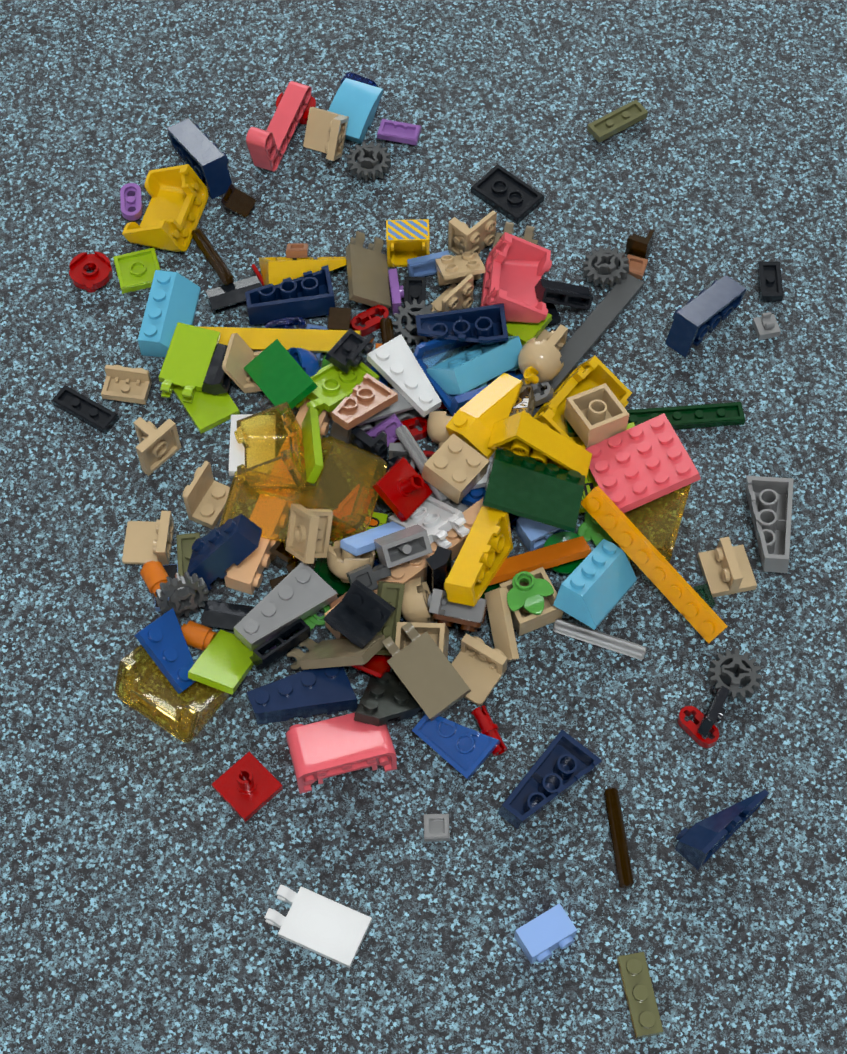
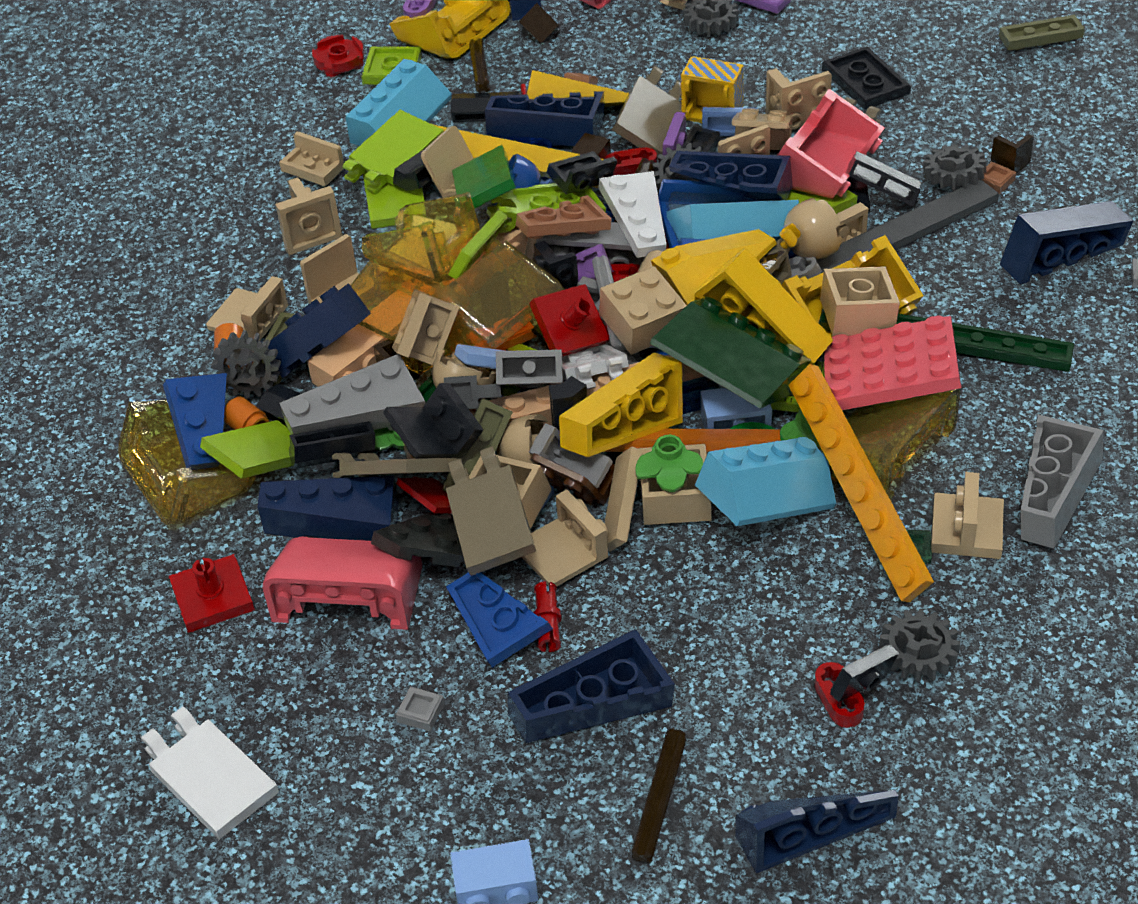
camera: 25 degrees right, 15 degrees down
(85, 409) = (256, 177): black tile -> none
(599, 639) = (751, 556): light grey axle -> none

